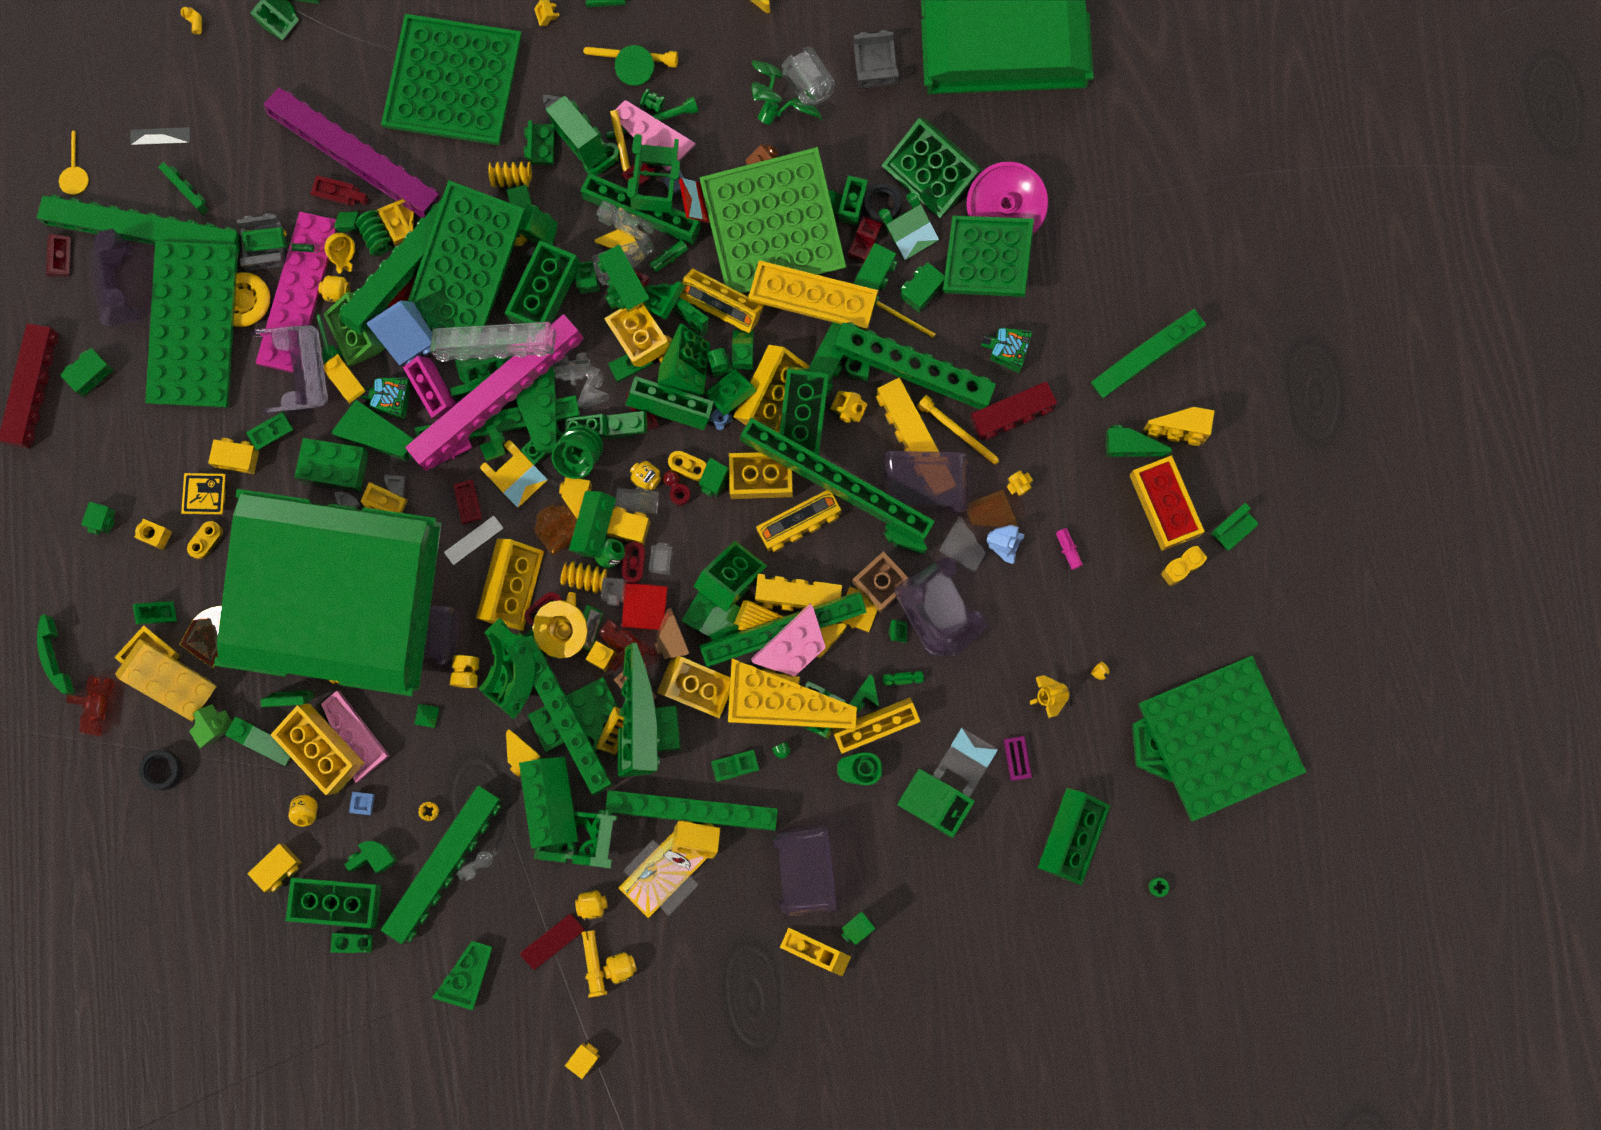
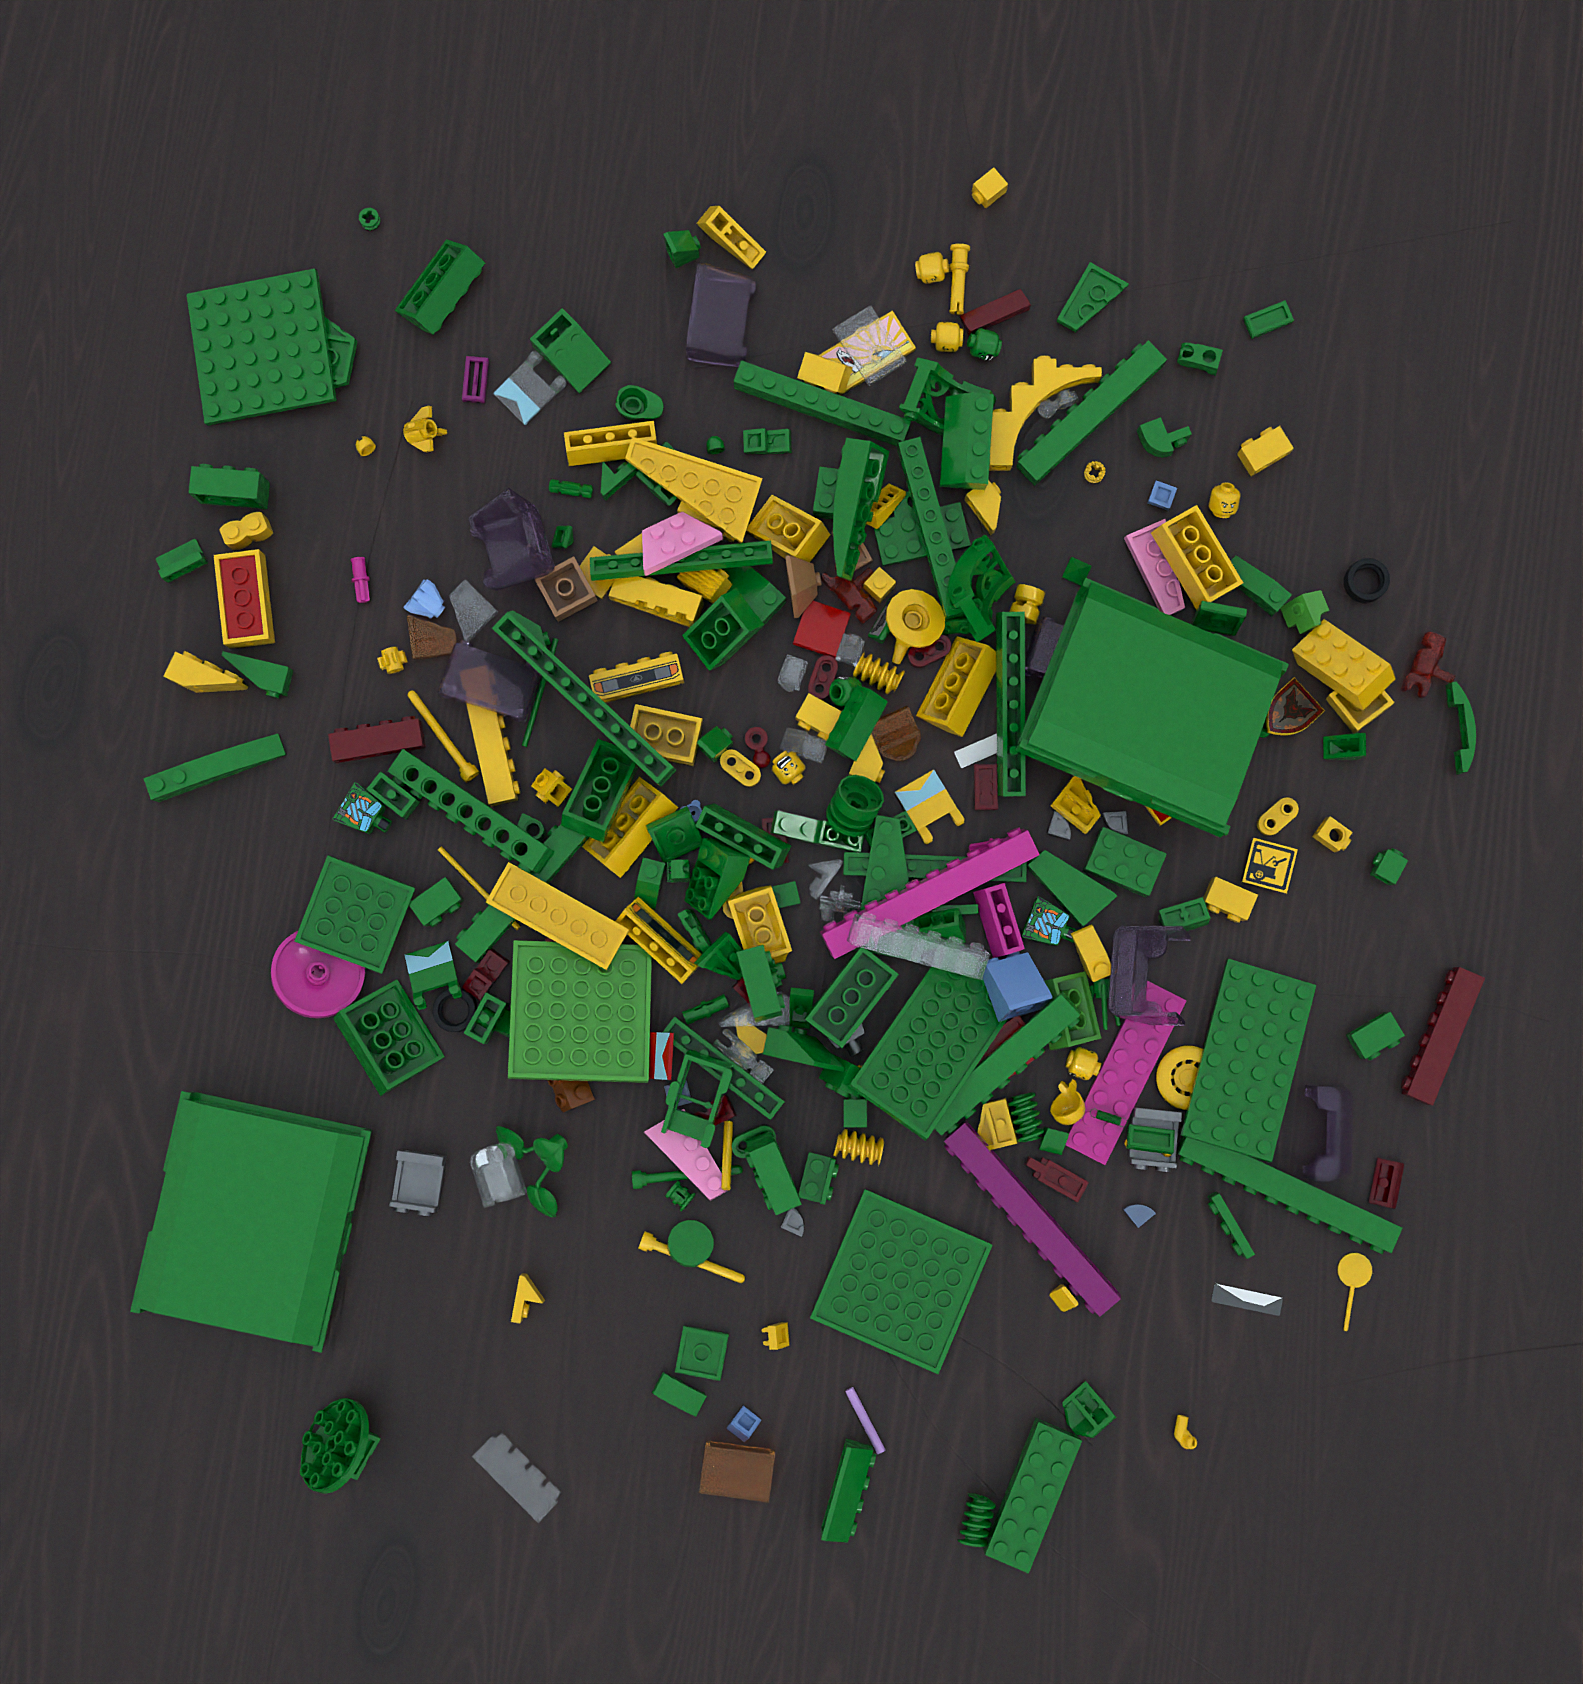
camera: 170 degrees left, 5 degrees up
(263, 180) = (1139, 1213): none -> sand blue tile
(295, 998) = (1268, 319): none -> green tile
(313, 99) = (1063, 1298): none -> yellow slope
(342, 914) = (1221, 390): green brick -> none
(459, 576) = (1010, 702): none -> green brick
(494, 447) = (944, 839): green bracket -> none
(506, 861) = (1025, 398): none -> yellow arch
(554, 905) = (984, 344): none -> green head
(574, 233) = (799, 1048): none -> green slope
(882, 485) = (537, 700): none -> green axle
(985, 364) = (393, 795): none -> green brick
(1210, 599) = (229, 486): none -> green brick

